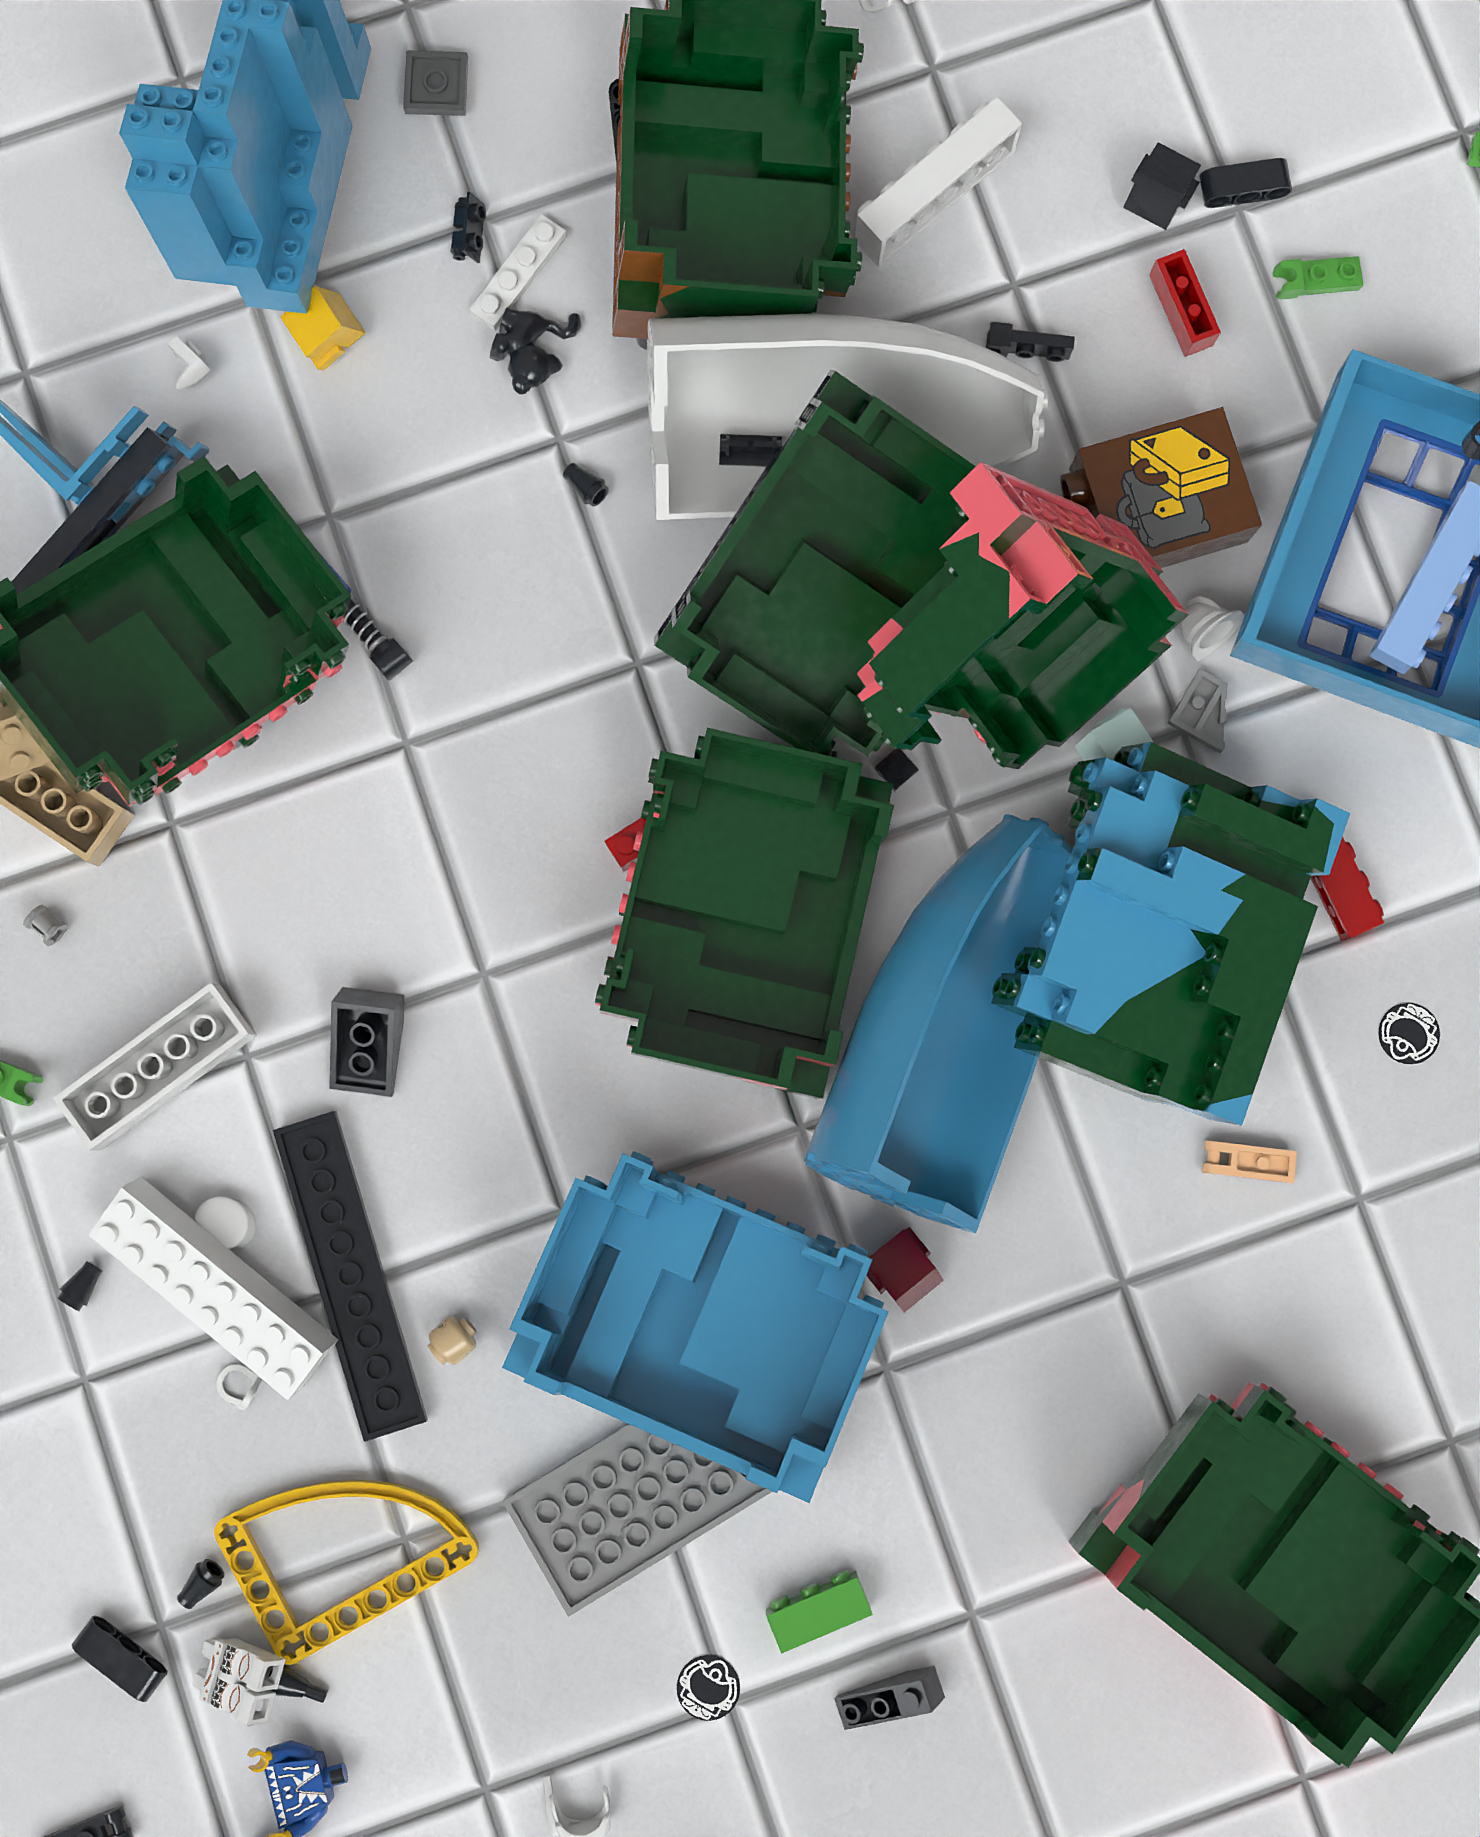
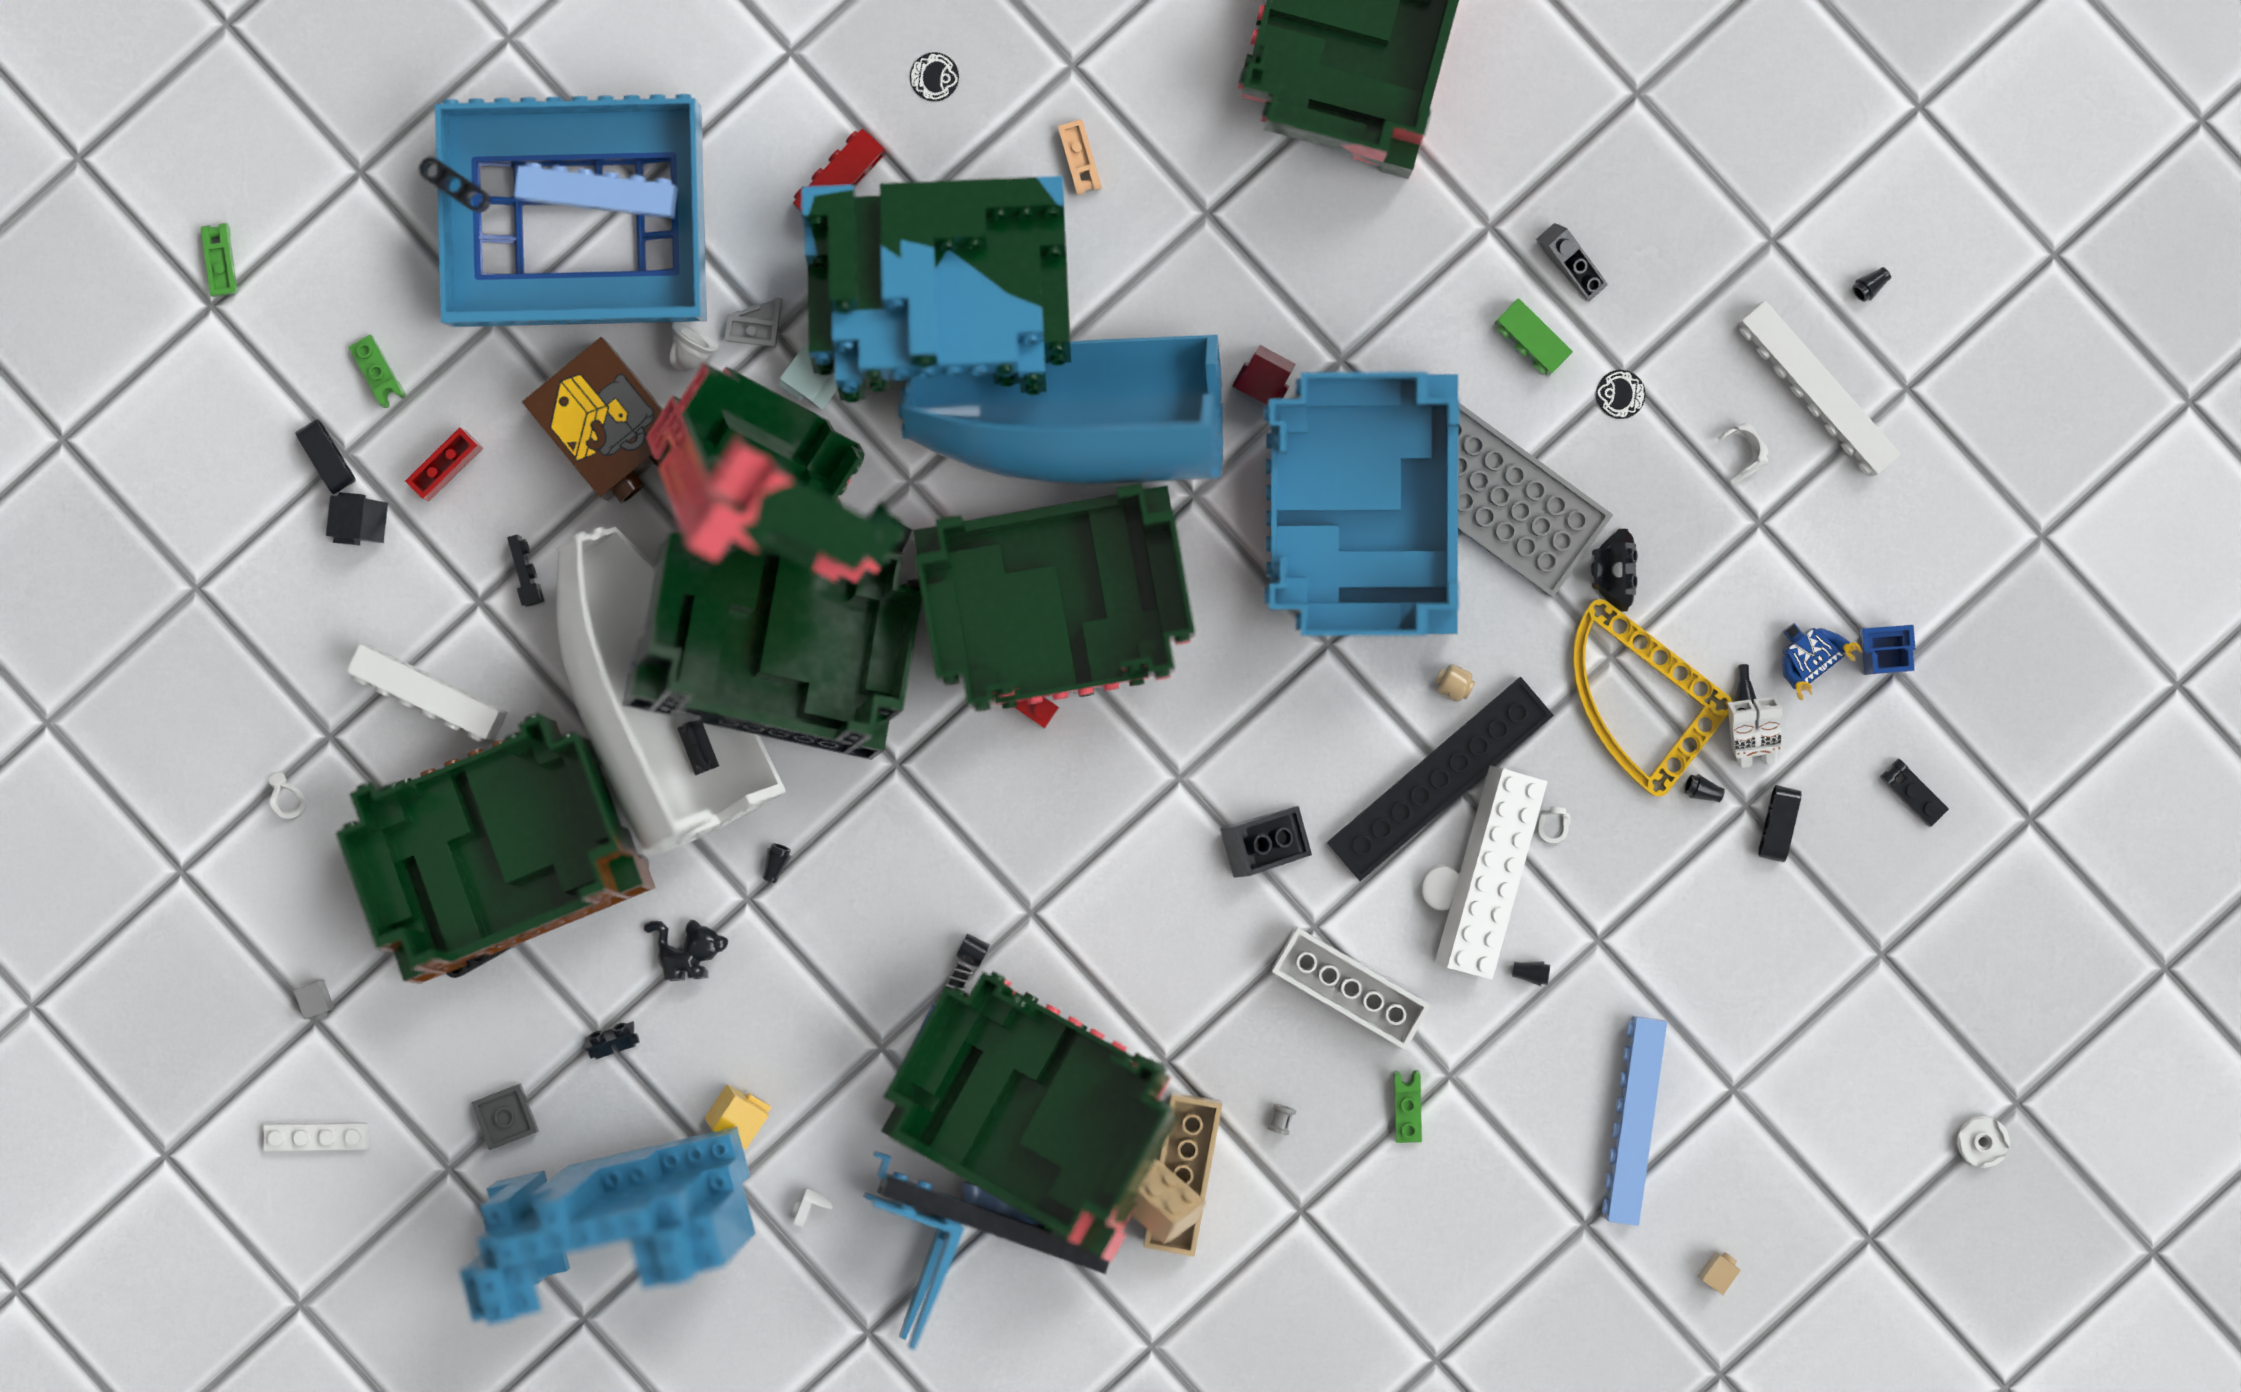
camera: 115 degrees left, 5 degrees up
(518, 271) = (629, 987): white plate -> none
(526, 1603) = (1616, 549): none -> black piece

